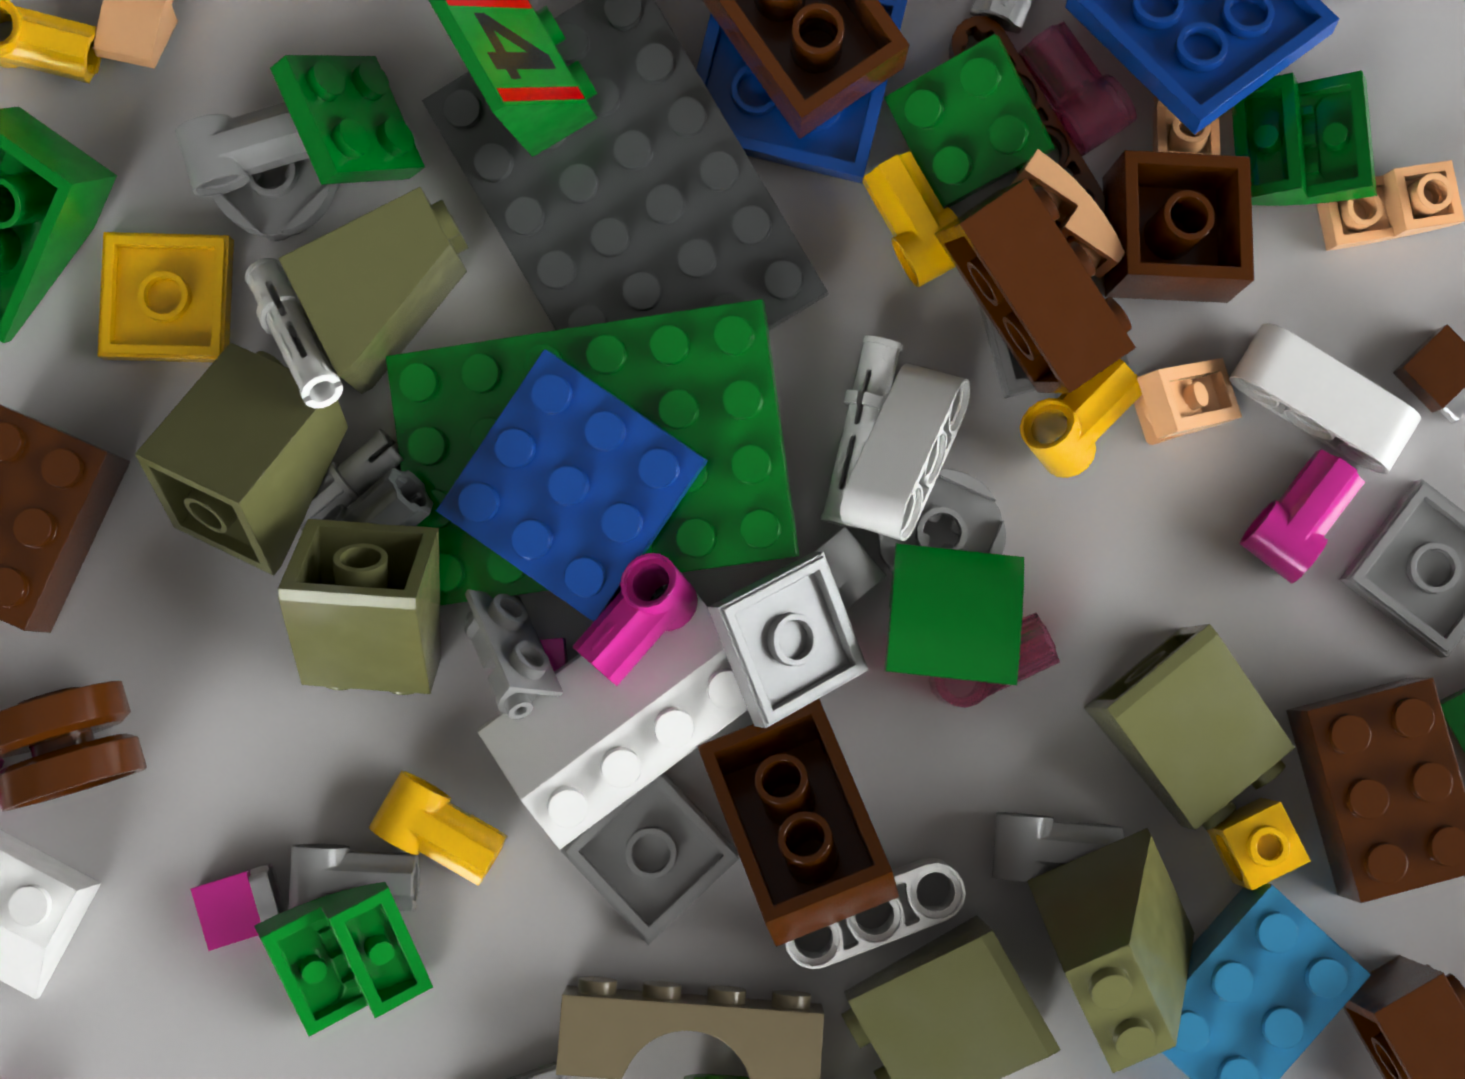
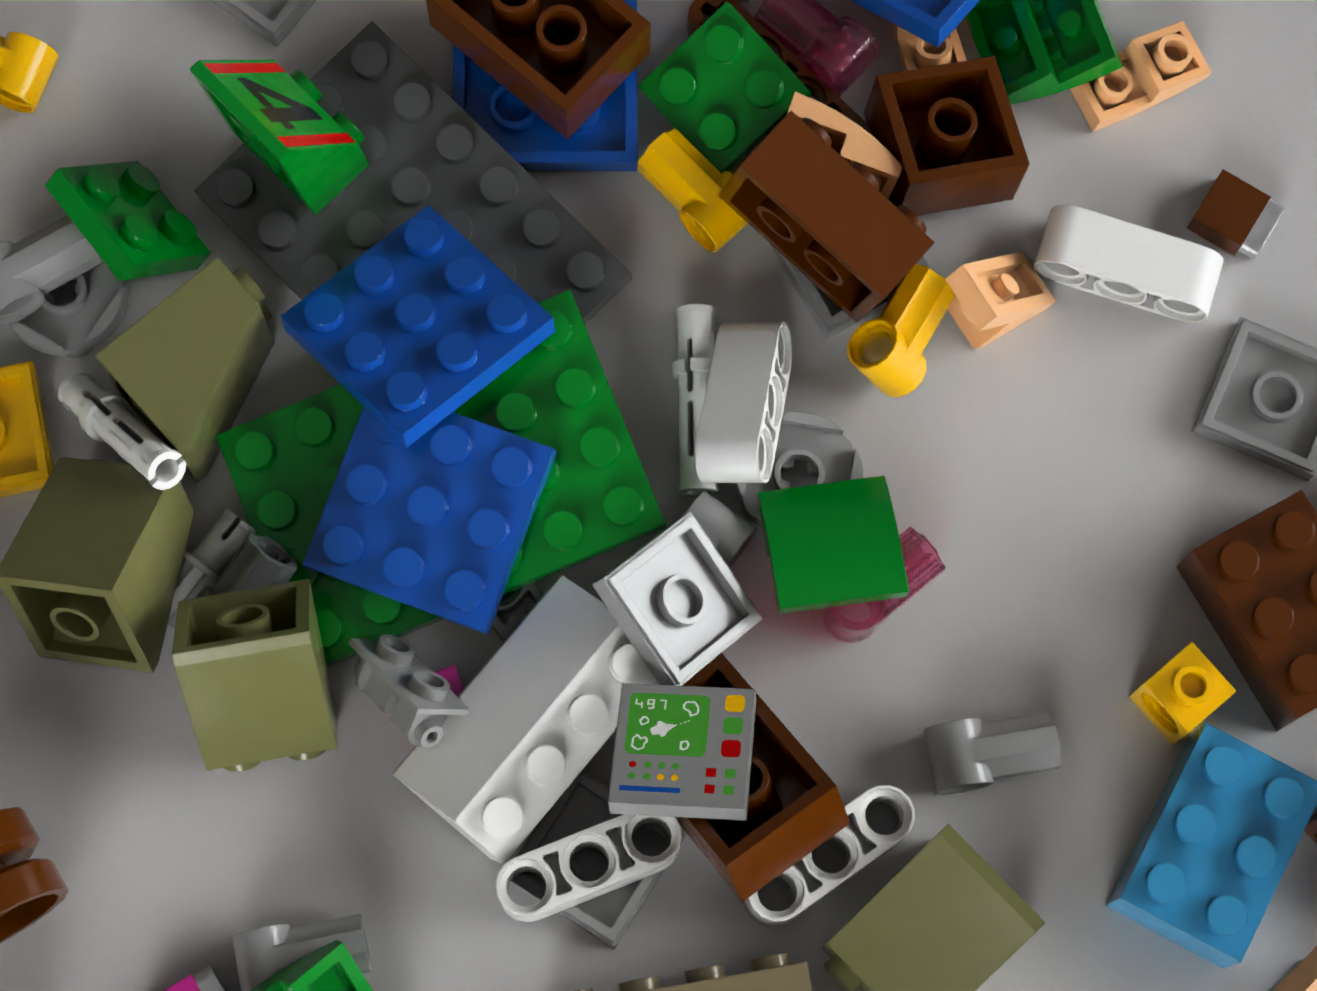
camera: 20 degrees left, 10 degrees down
(424, 821) = (360, 879): yellow piece -> none
(603, 300) = (418, 325): none -> blue plate
(613, 885) = (566, 889): none -> white beam
(635, 622) = (525, 616): dark pink piece -> none
(754, 796) = (683, 751): none -> light grey tile
(1120, 945) = (1075, 814): olive slope -> none
(1193, 727) = (1090, 597): olive slope -> none
(1292, 530) = (1134, 388): dark pink piece -> none

